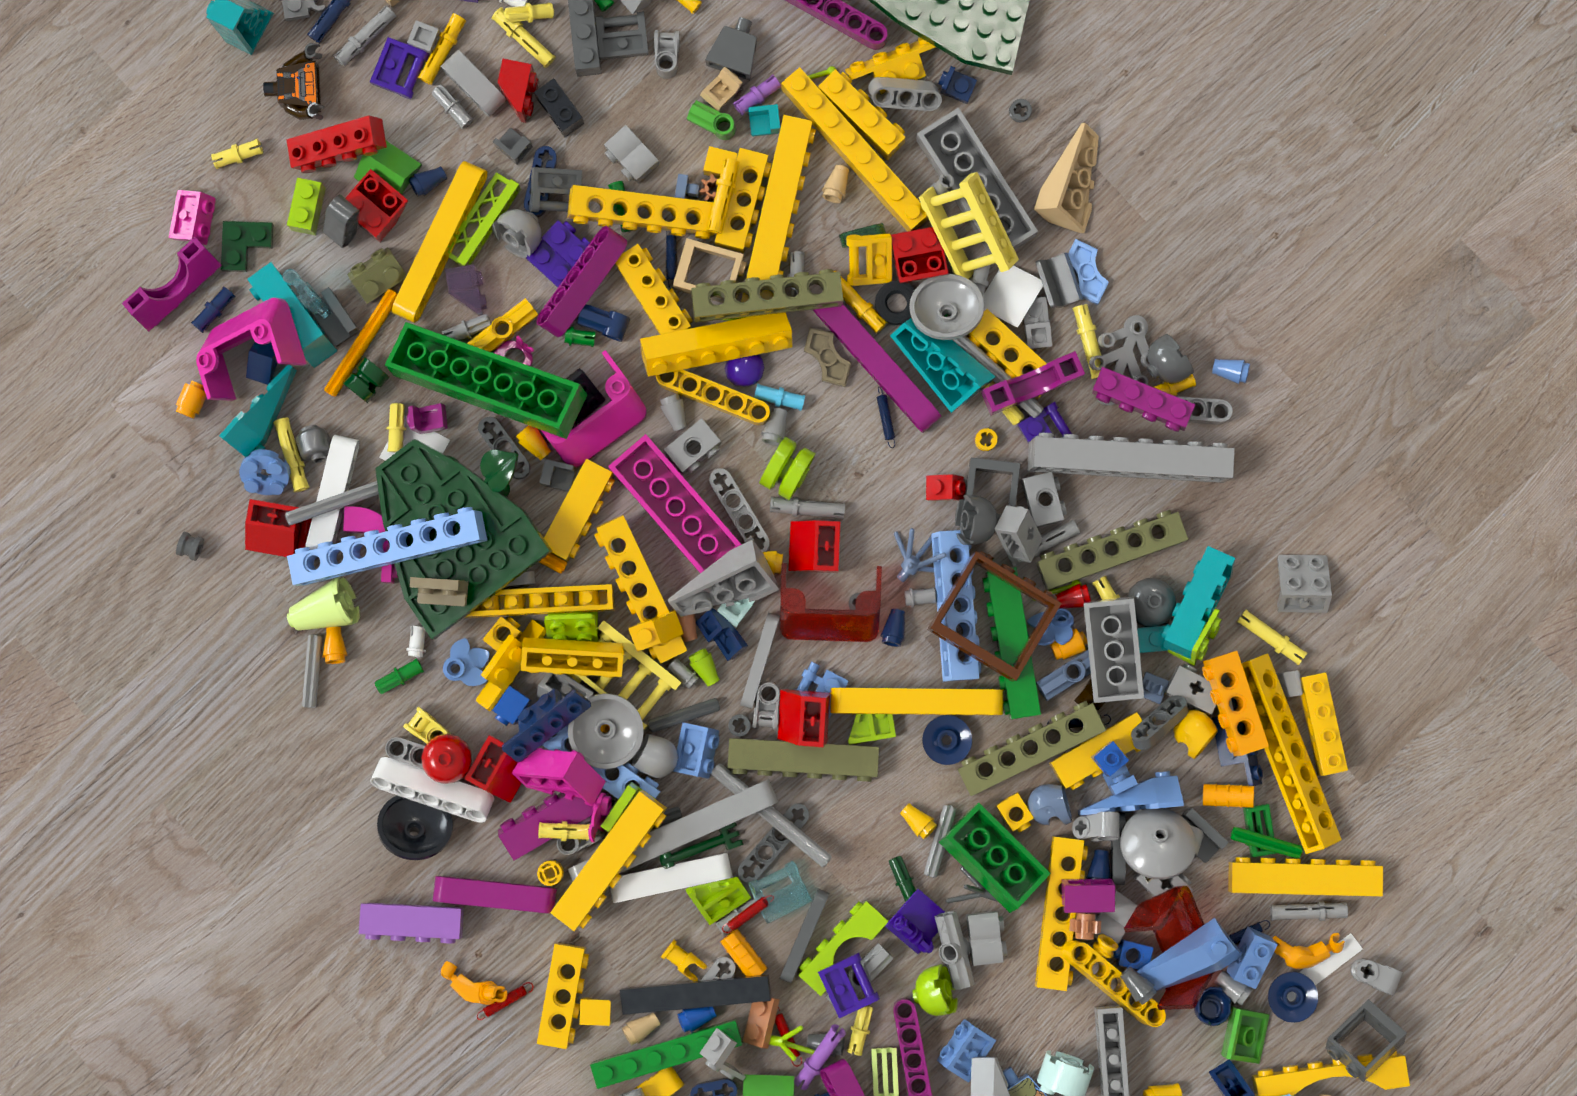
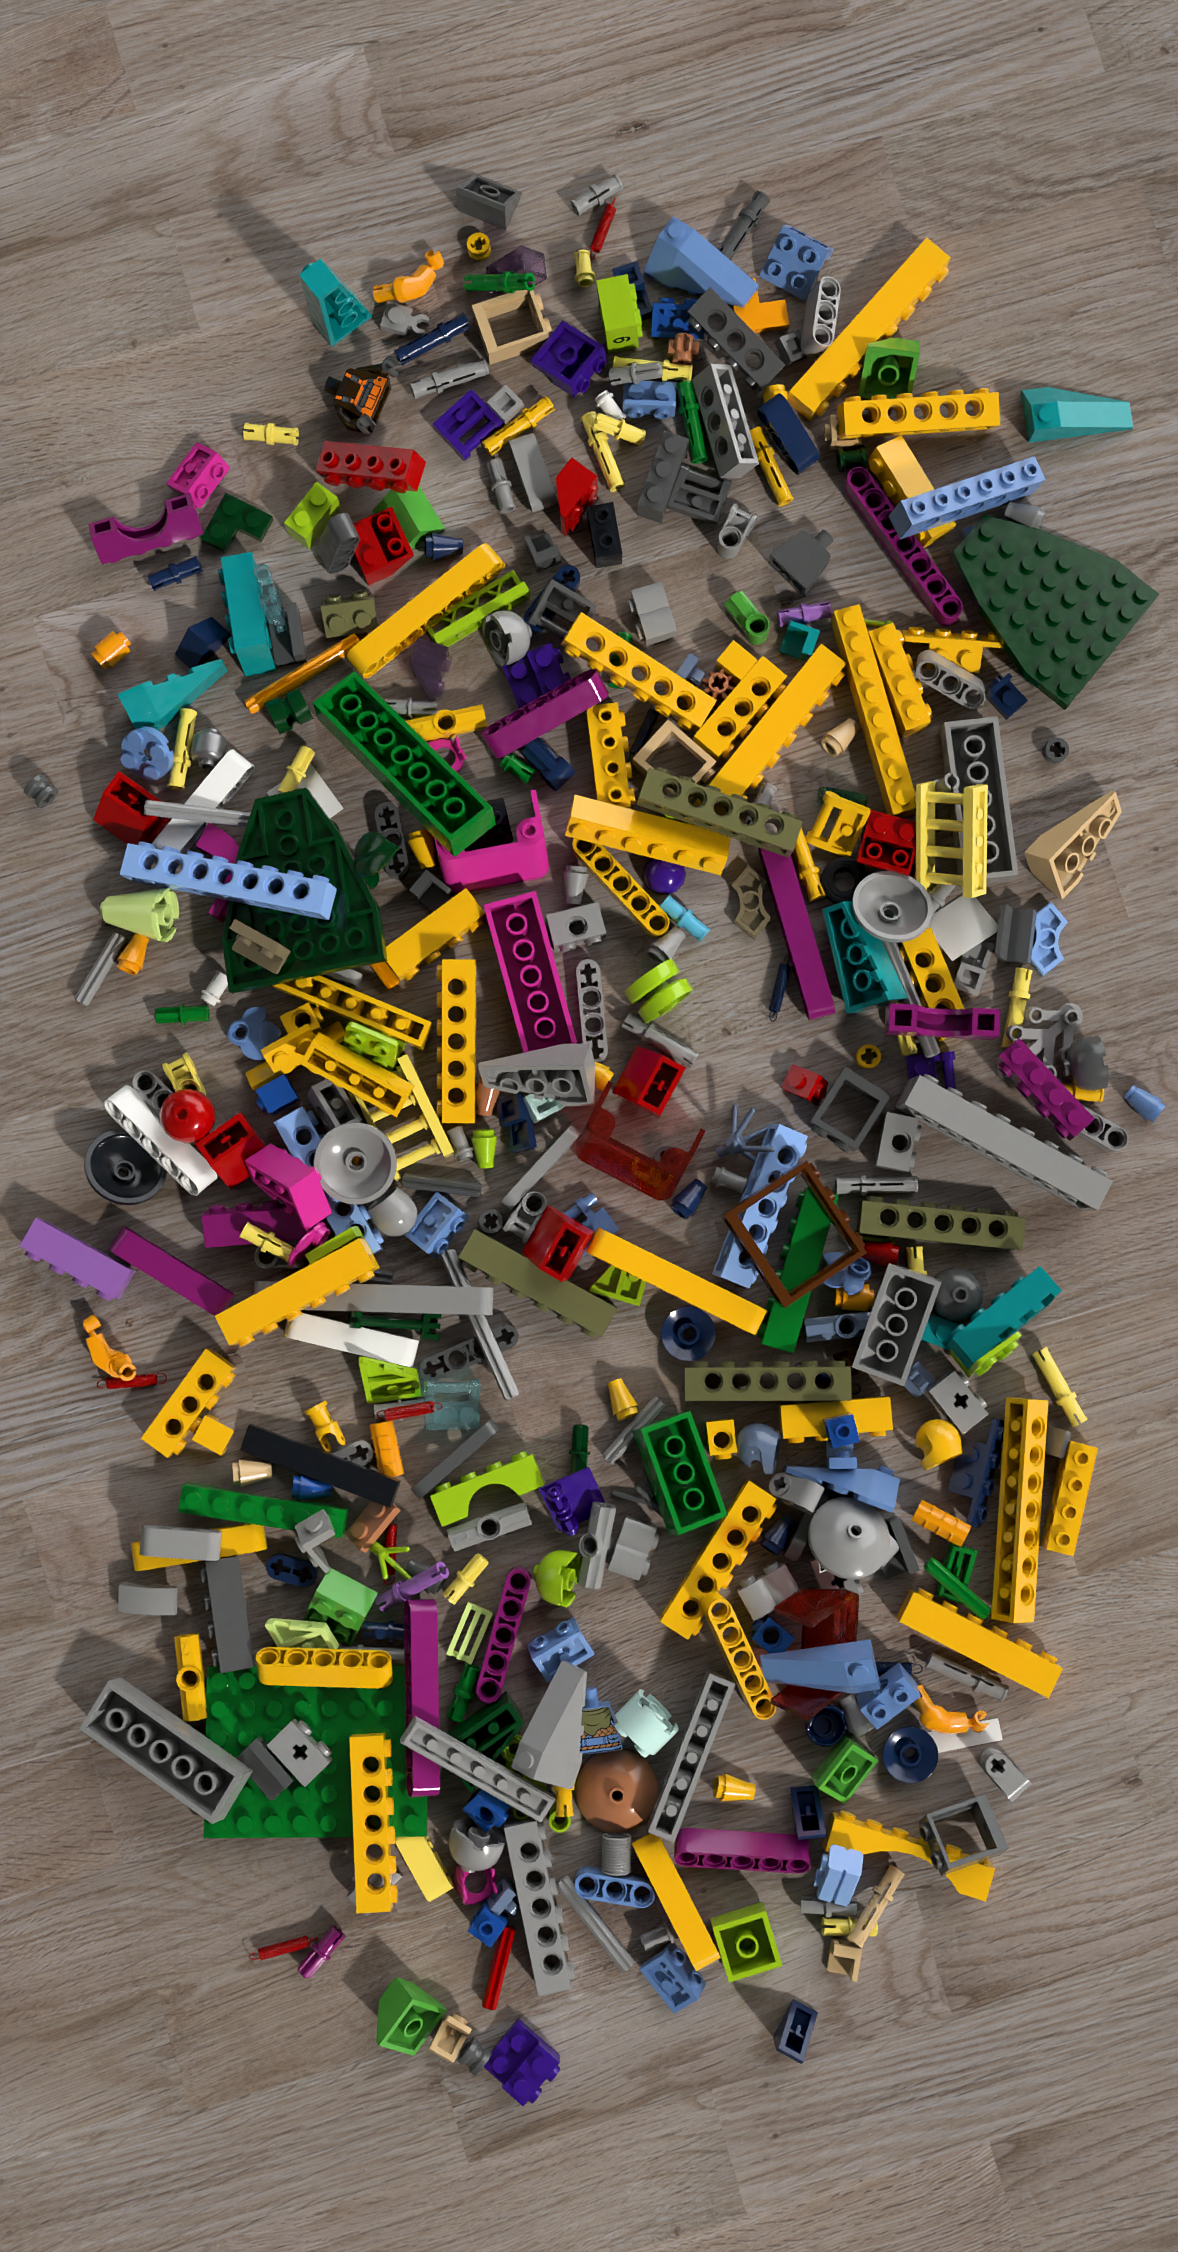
camera: 25 degrees right, 0 degrees up
(264, 323) = (214, 605): dark pink windscreen -> none
(427, 418) = (330, 776): magenta bracket -> none
(543, 721) = (299, 1124): dark blue bracket -> none
(553, 871) = (240, 1277): yellow wheel -> none
(656, 631) = (452, 1089): yellow slope -> none
(722, 89) = (772, 591): tan bracket -> none
(725, 185) = (730, 685): yellow pin -> none
(840, 988) = (464, 1530): dark purple plate -> none
(976, 520) = (821, 1130): dark grey cylinder -> none
(1018, 533) = (856, 1163): light grey brick -> none
(1085, 926) = (737, 1584): nougat gear -> none
(1088, 895) = (754, 1556): magenta hinge -> none
(1105, 946) = (747, 1614): yellow bush -> none
(1139, 986) = (761, 1670): dark grey cone -> none
(1148, 734) = (890, 1424): dark grey beam -> none
(1246, 712) = (1000, 1448): light orange brick -> none
(1304, 583) = (1116, 1349): light grey bracket -> none

